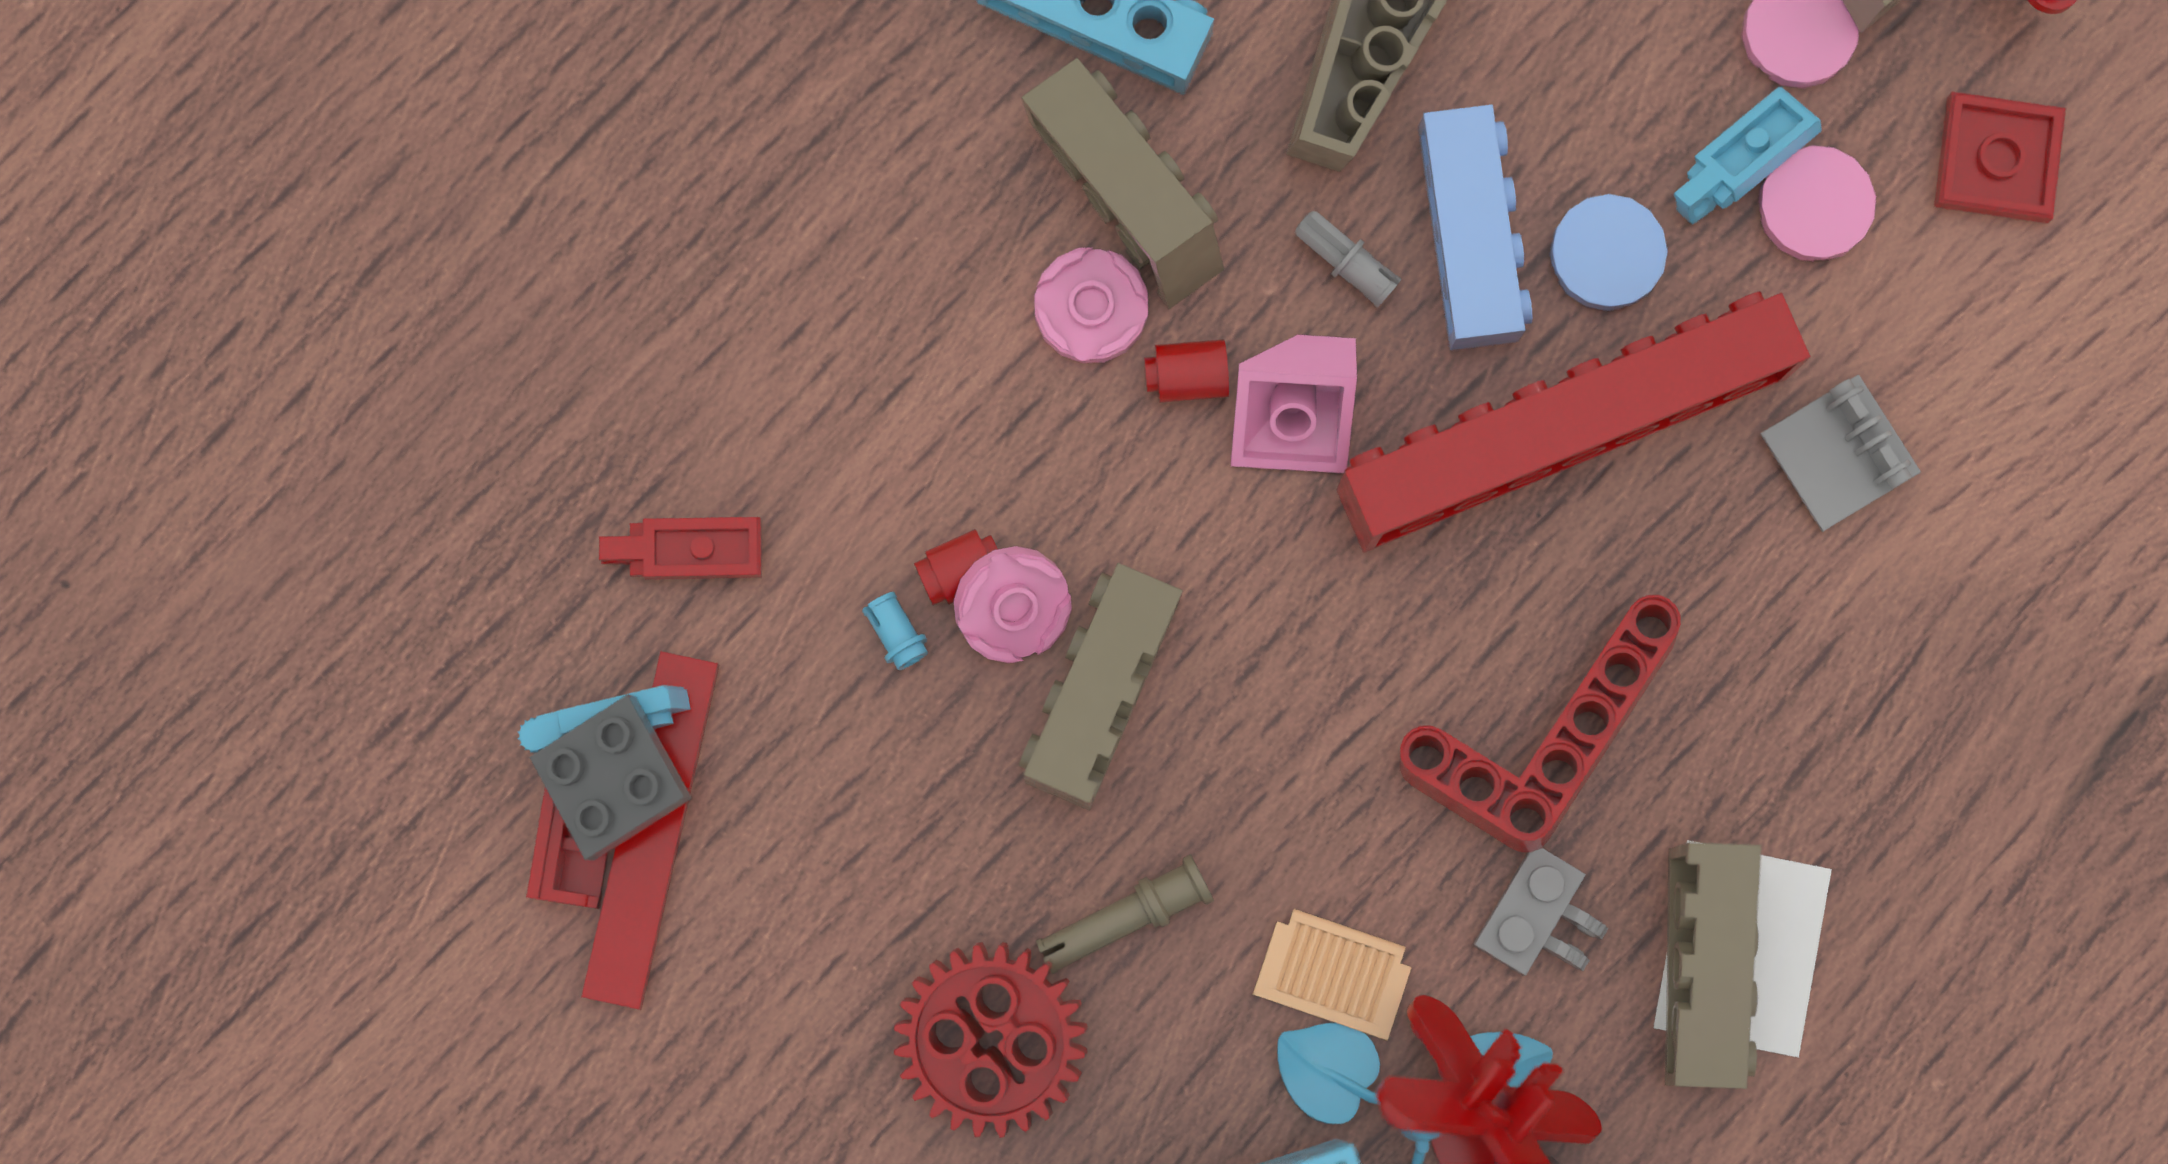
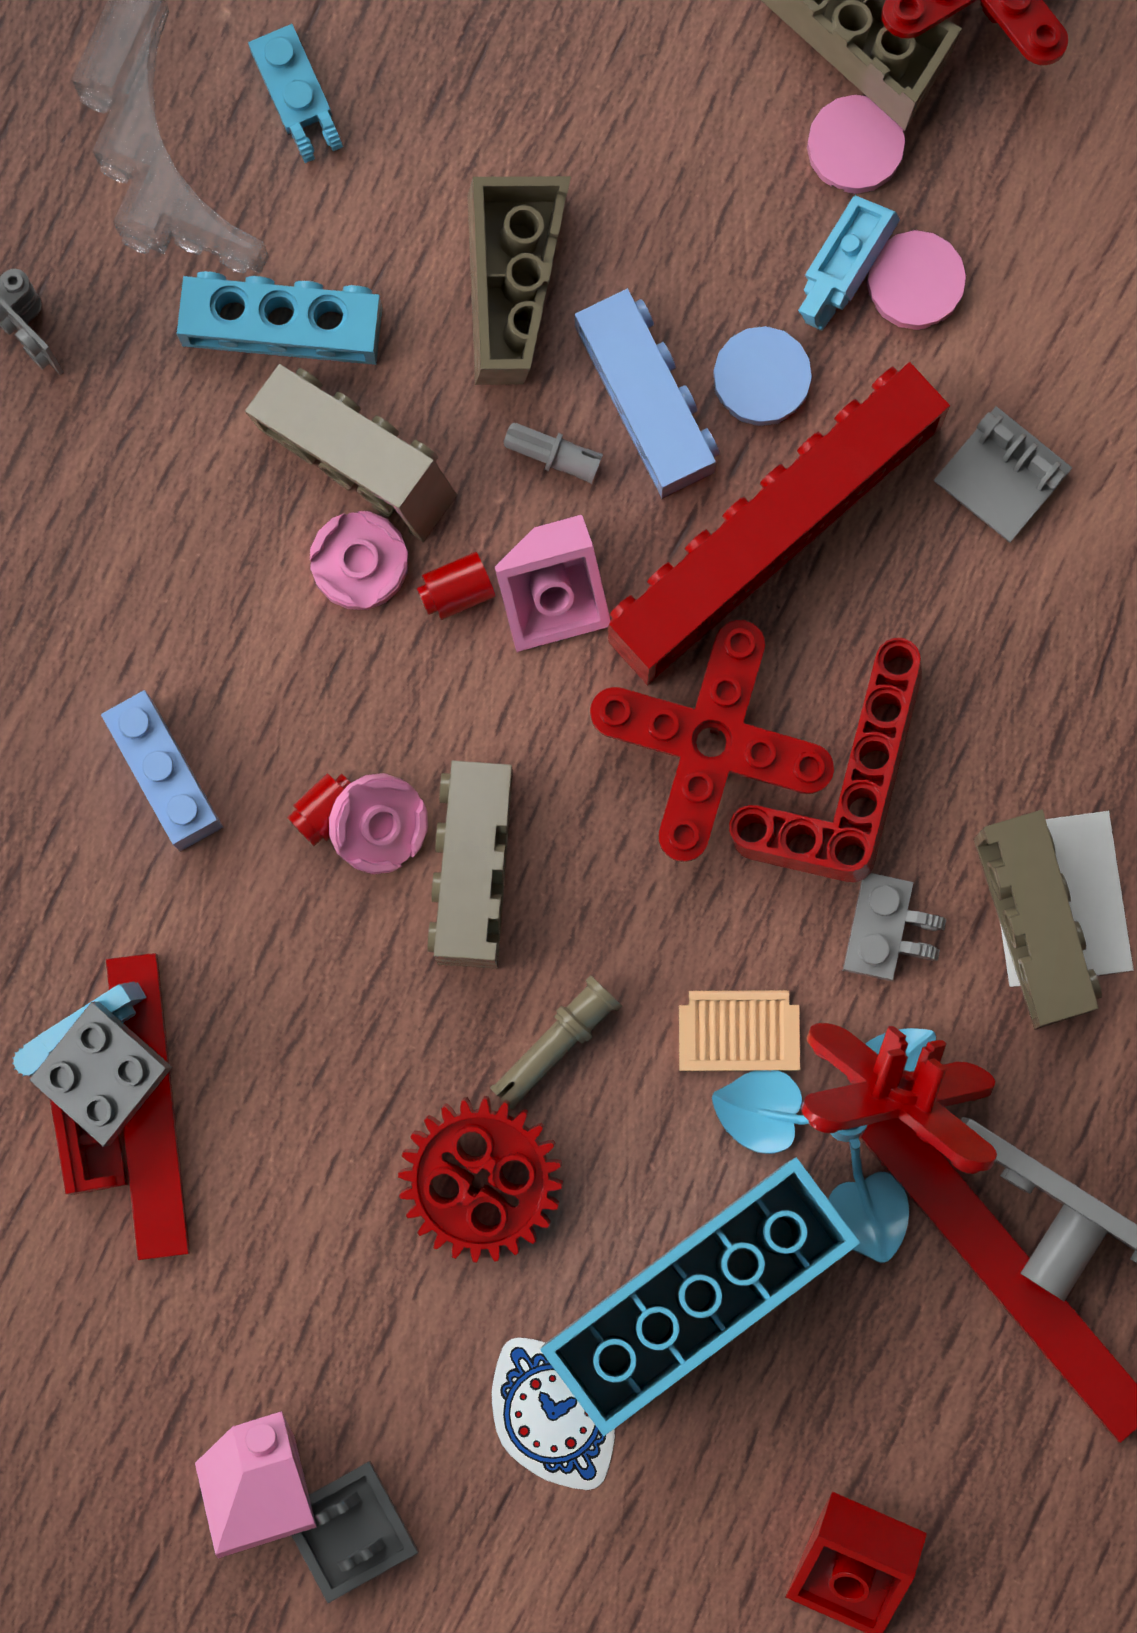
camera: 15 degrees left, 0 degrees up
(688, 548) = (99, 868): red hinge -> none
(793, 464) = (161, 770): none -> light blue brick
(895, 631) = (291, 877): medium azure pin -> none
(1436, 606) = (722, 708): none -> red piece
(2000, 157) = (1050, 193): red tile -> none

